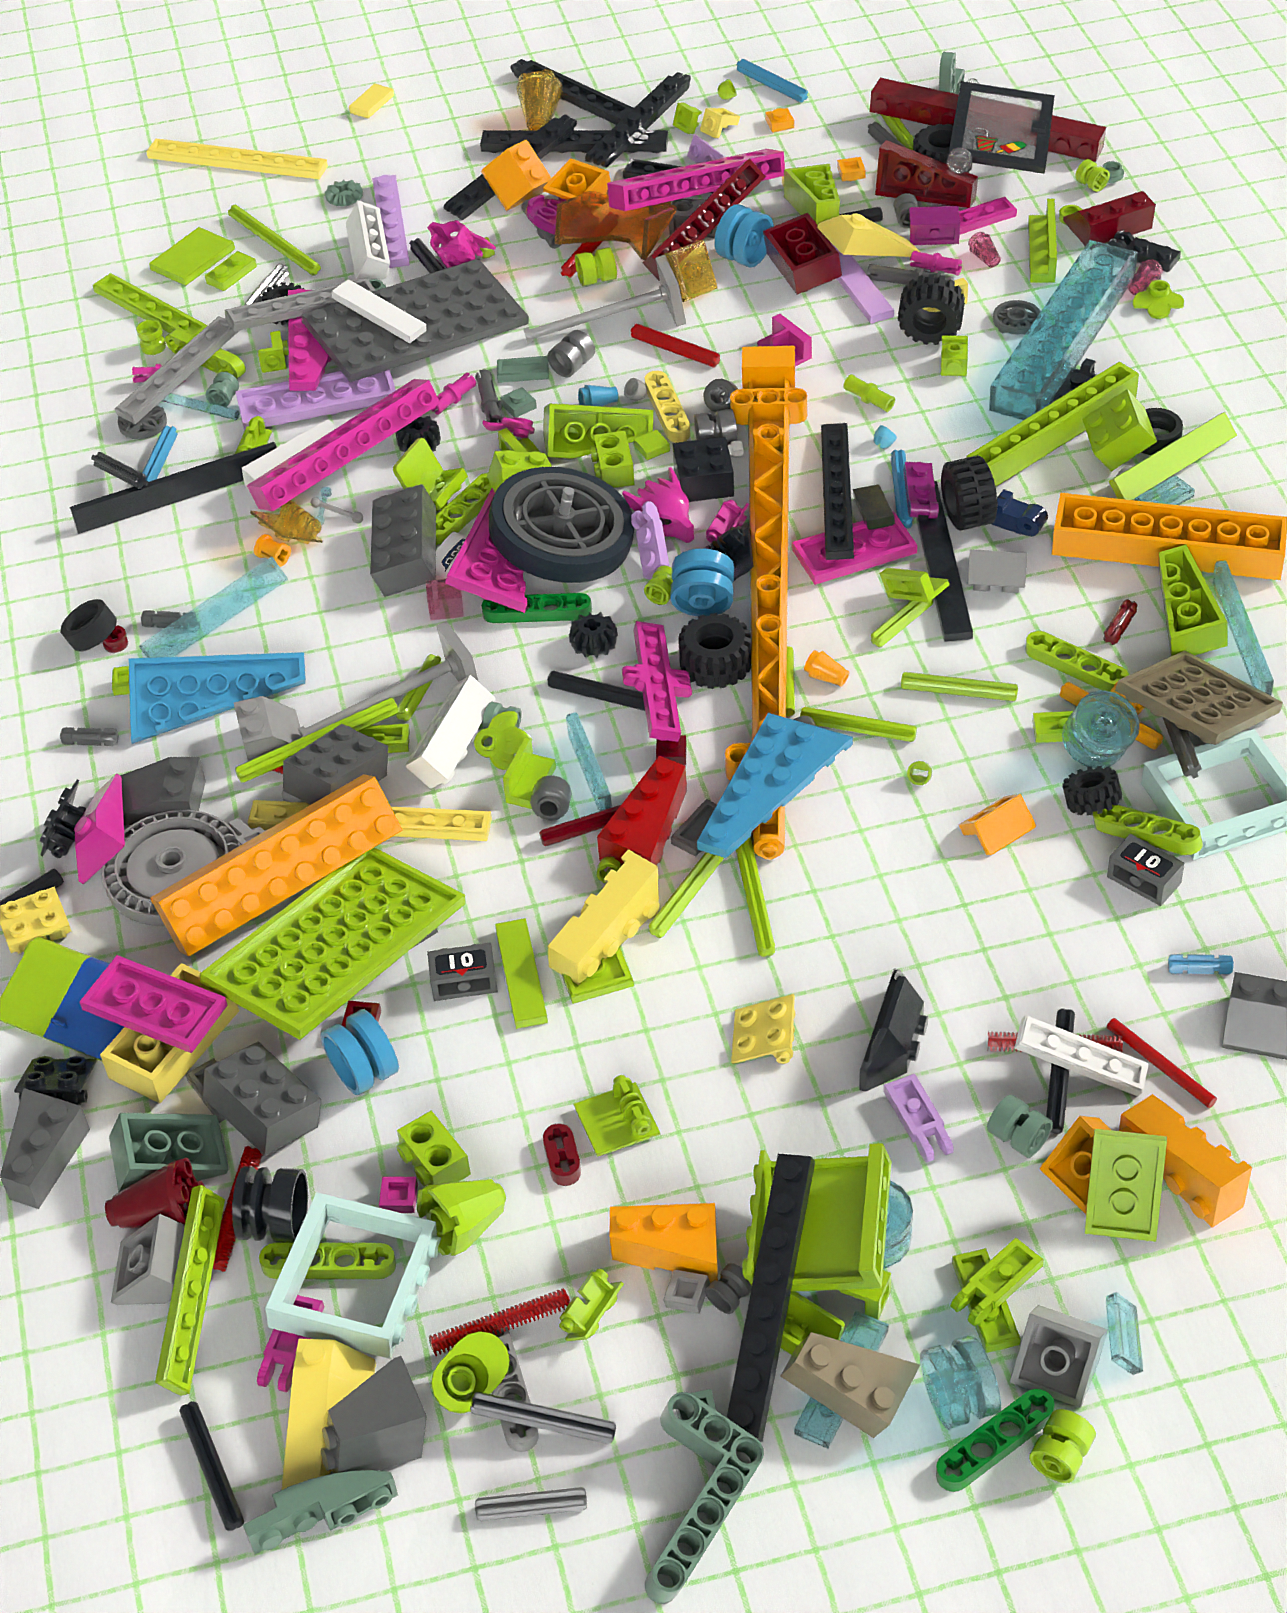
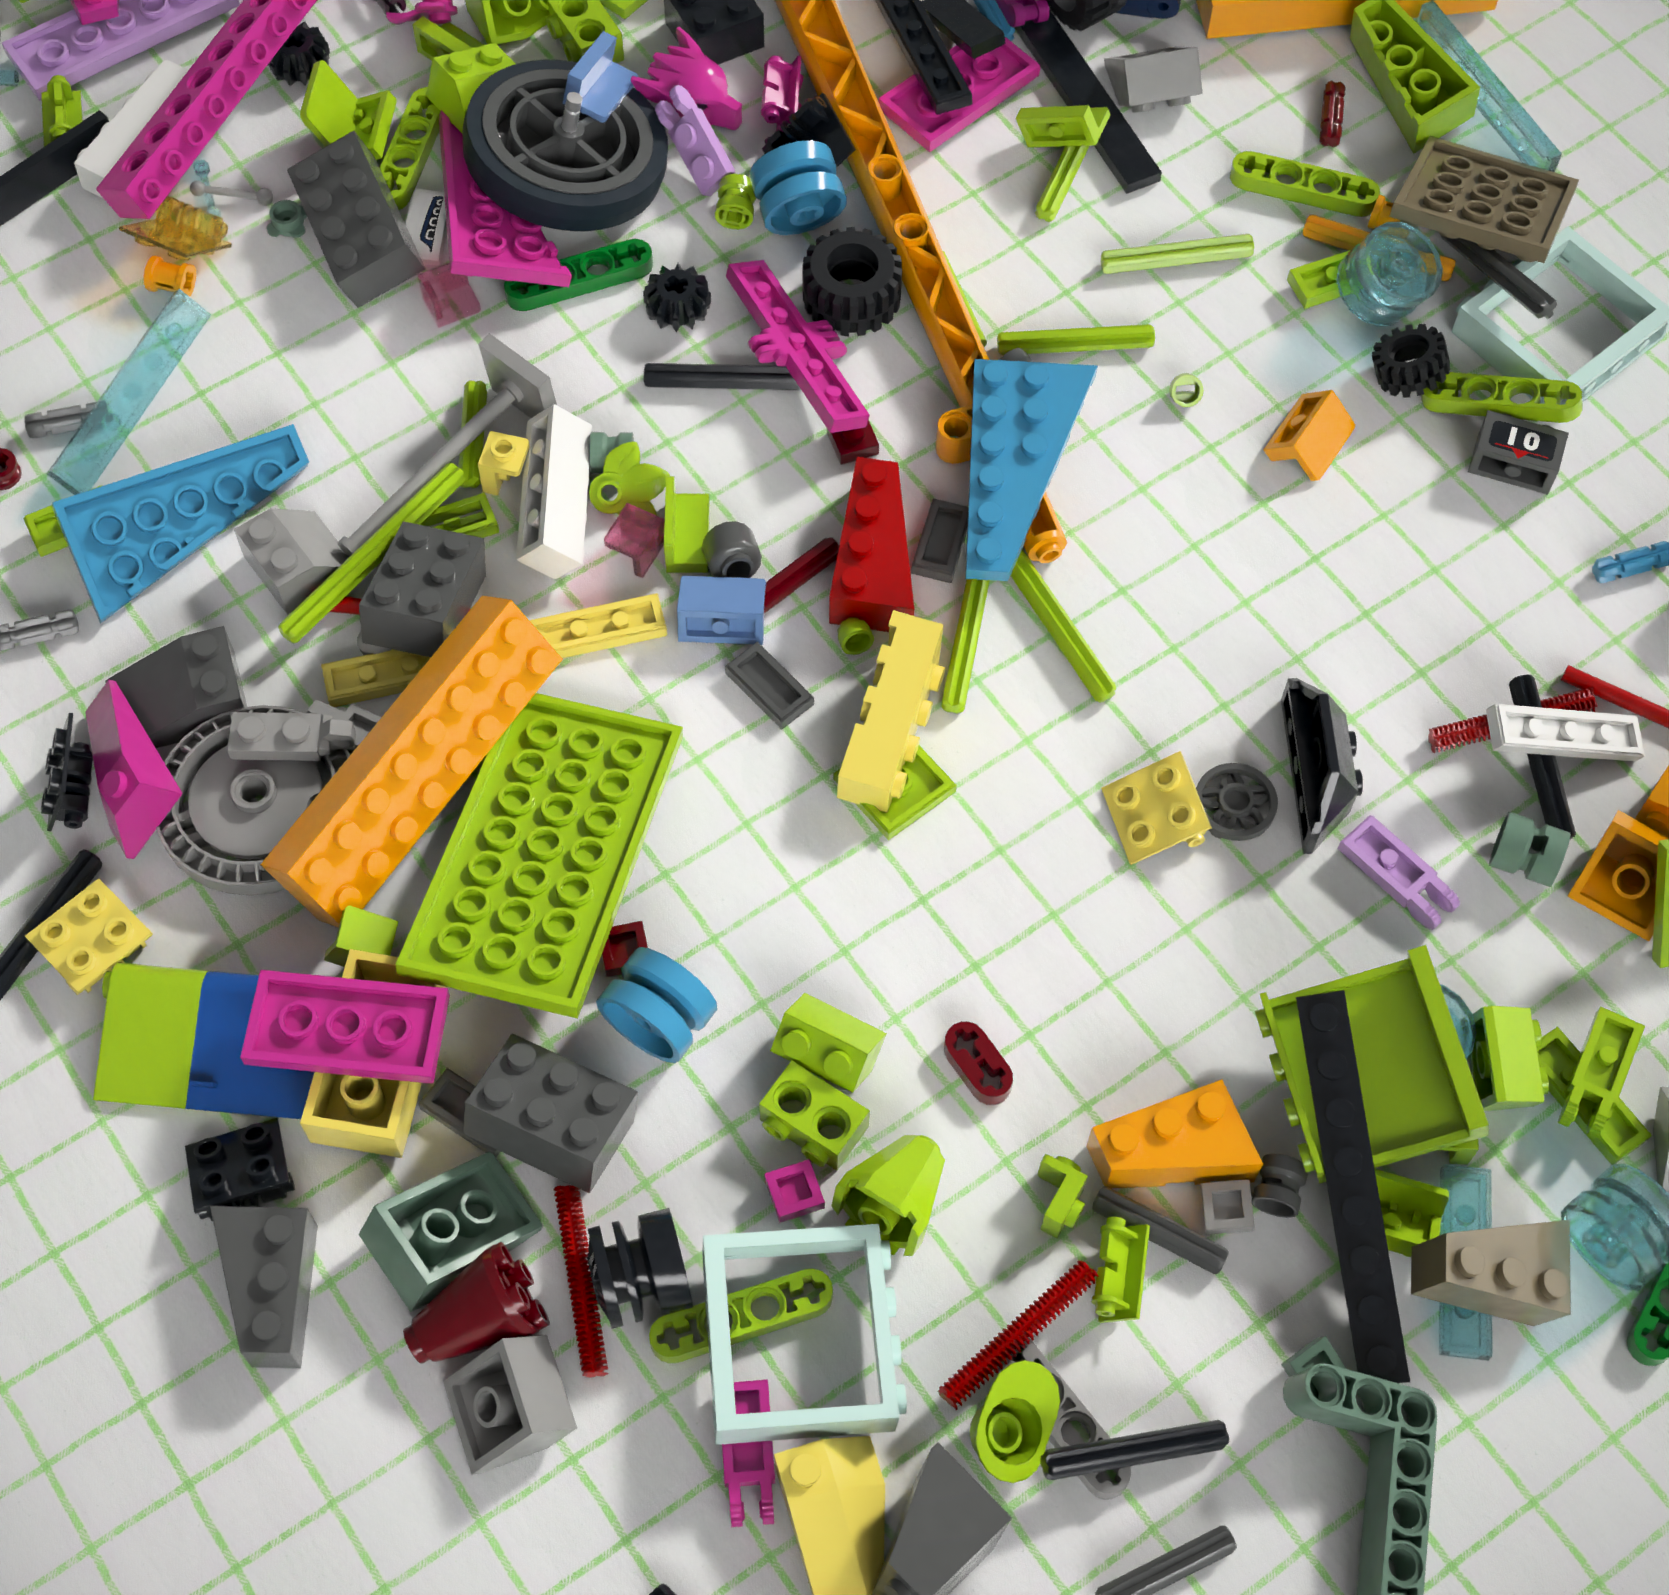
camera: 25 degrees left, 15 degrees up
(190, 1291) = (586, 1428): lime tile -> none
(193, 955) = (361, 932): none -> lime panel
(205, 830) = (287, 736): none -> light grey hinge
(361, 532) = (286, 219): none -> sand green plate
(423, 705) = (501, 459): none -> light yellow bracket
(462, 971) = (730, 839): dark grey brick -> none
(463, 1108) = (828, 1042): none -> lime brick
(489, 771) = (637, 536): none -> clear pink panel
(521, 973) = (805, 817): lime tile -> none
(525, 831) = (721, 610): none -> medium blue panel
(538, 887) = (769, 685): none -> dark grey tile
(576, 1252) = (1065, 1206): none -> lime bracket
(588, 762) = (758, 488): clear light blue tile -> none
(597, 487) = (599, 79): none -> medium blue panel
(616, 1117) = (1024, 989): lime hinge -> none
(636, 1294) = (1162, 1230): none -> dark grey axle
(824, 668) = (1002, 271): light orange cone -> none
(824, 1042) = (1238, 801): none -> dark grey wheel
(927, 1249) = (1507, 1058): none -> lime slope

